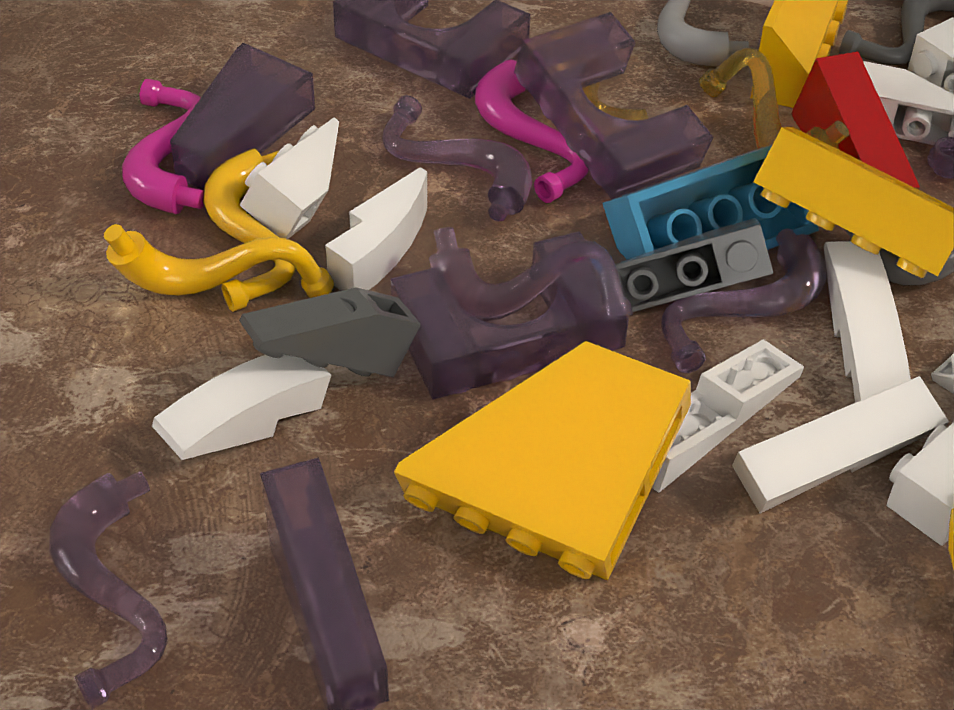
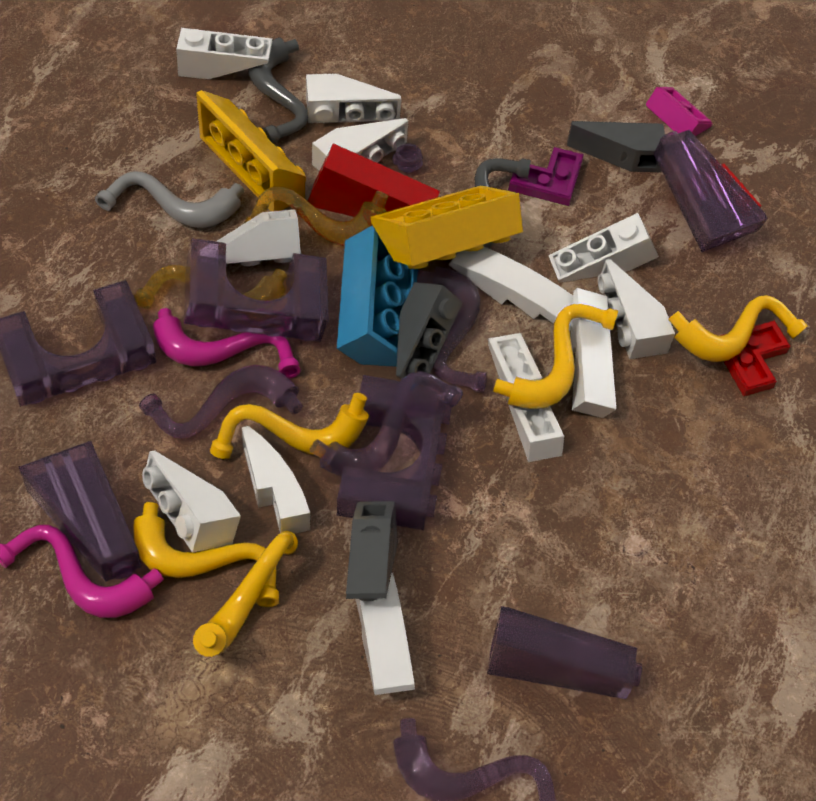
camera: 65 degrees left, 10 degrees up
(490, 257) = (344, 428): none -> yellow animal
(557, 458) = (537, 488): yellow slope -> none
(692, 81) = (264, 238): none -> white slope
(750, 416) = (551, 389): none -> yellow animal

